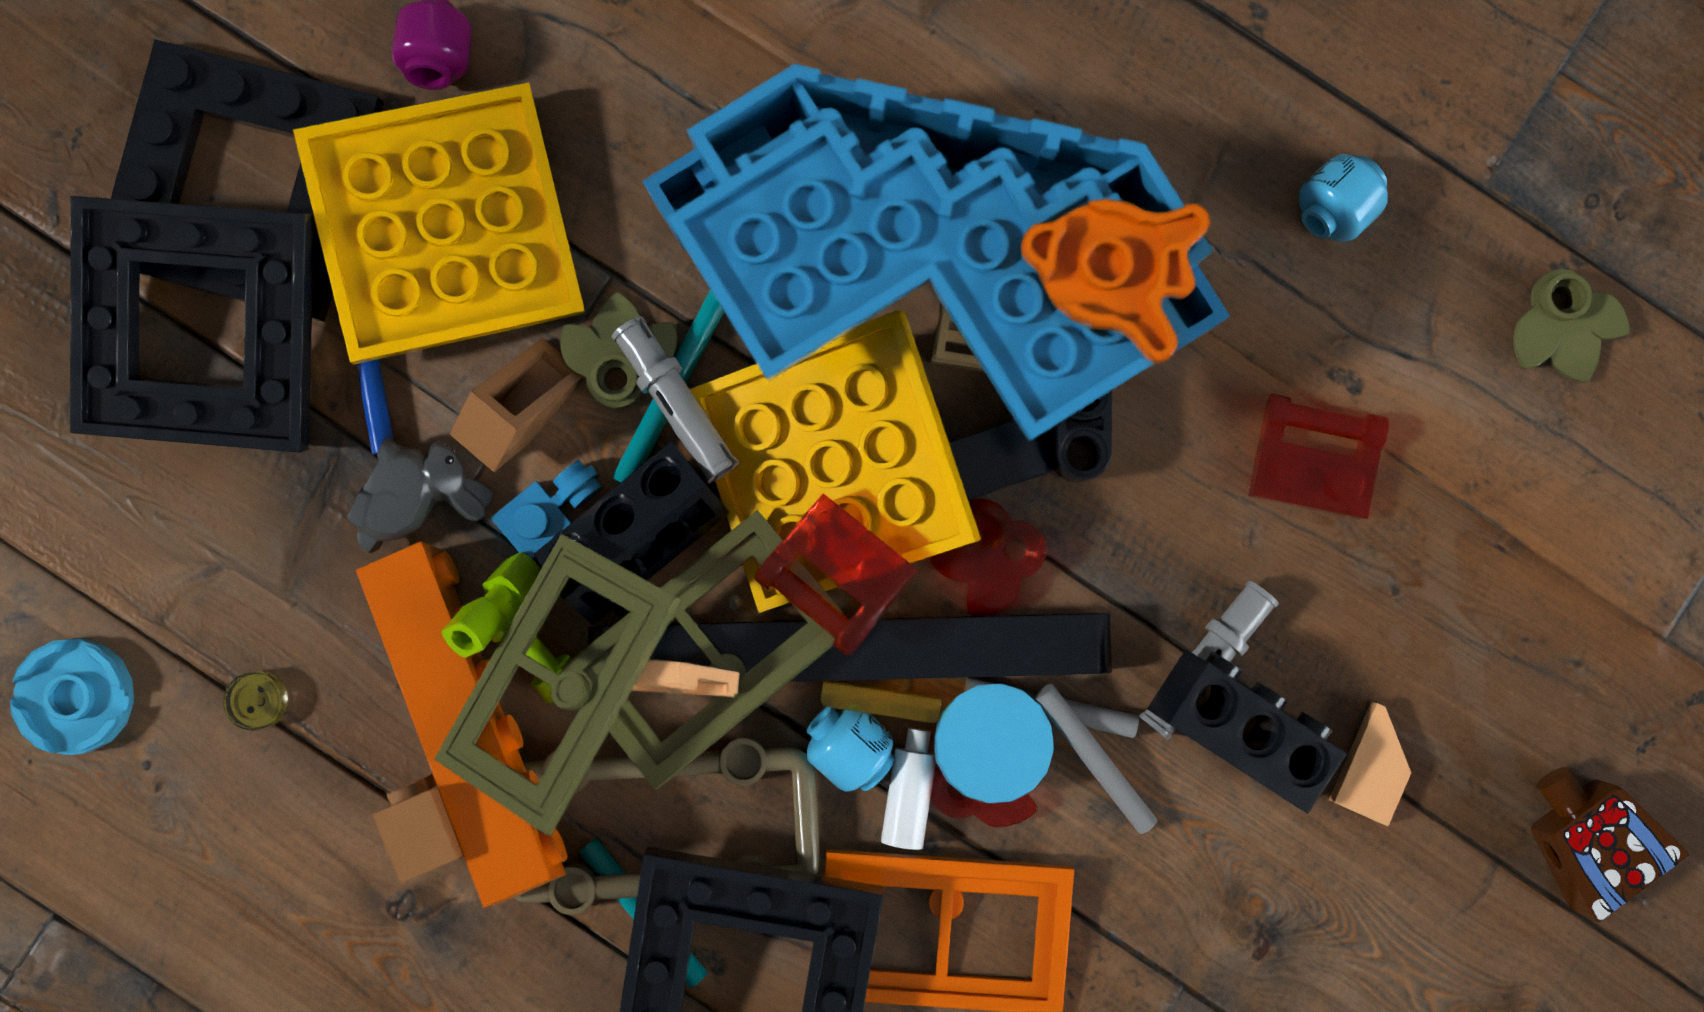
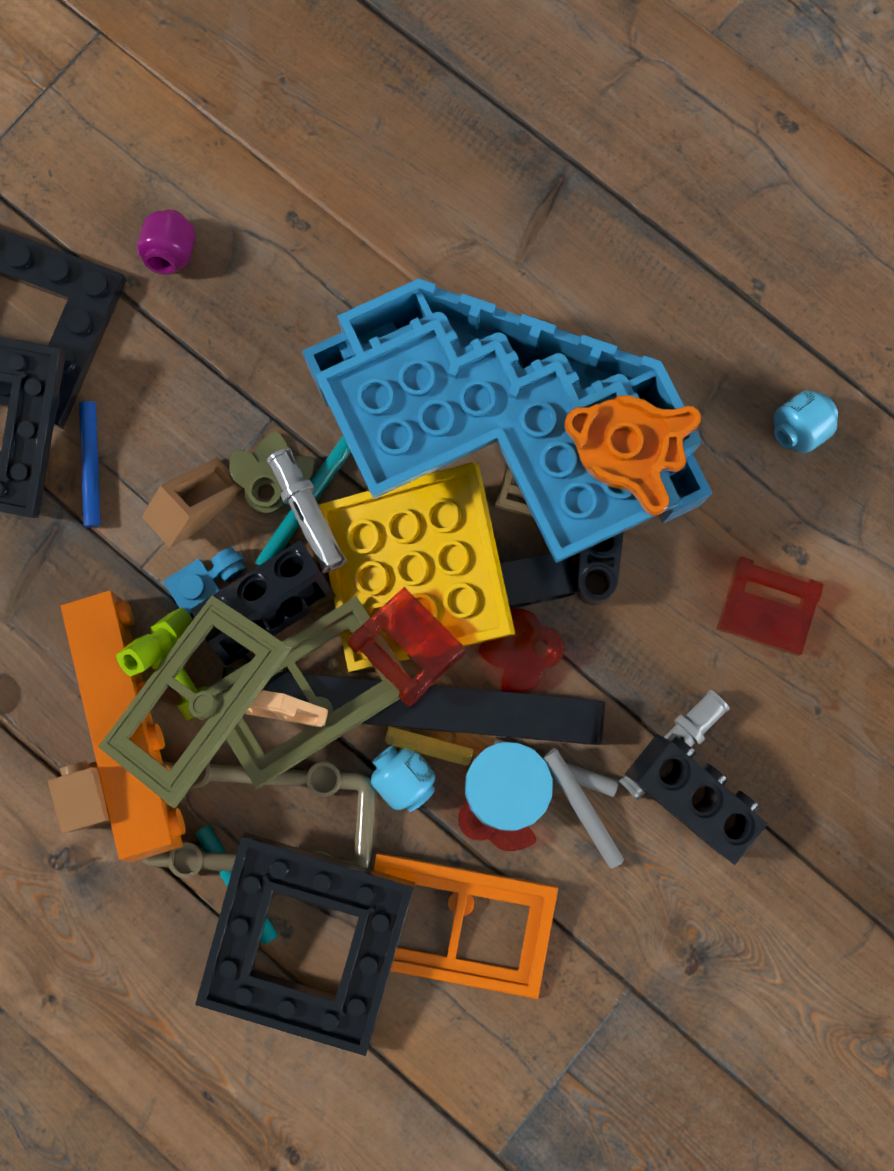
camera: 10 degrees right, 5 degrees down
(406, 488) = (104, 553): dark grey animal -> none
(439, 222) = (154, 367): yellow plate -> none
(909, 792) = (443, 817): white cylinder -> none
(1373, 770) = (788, 841): light nougat tile -> none

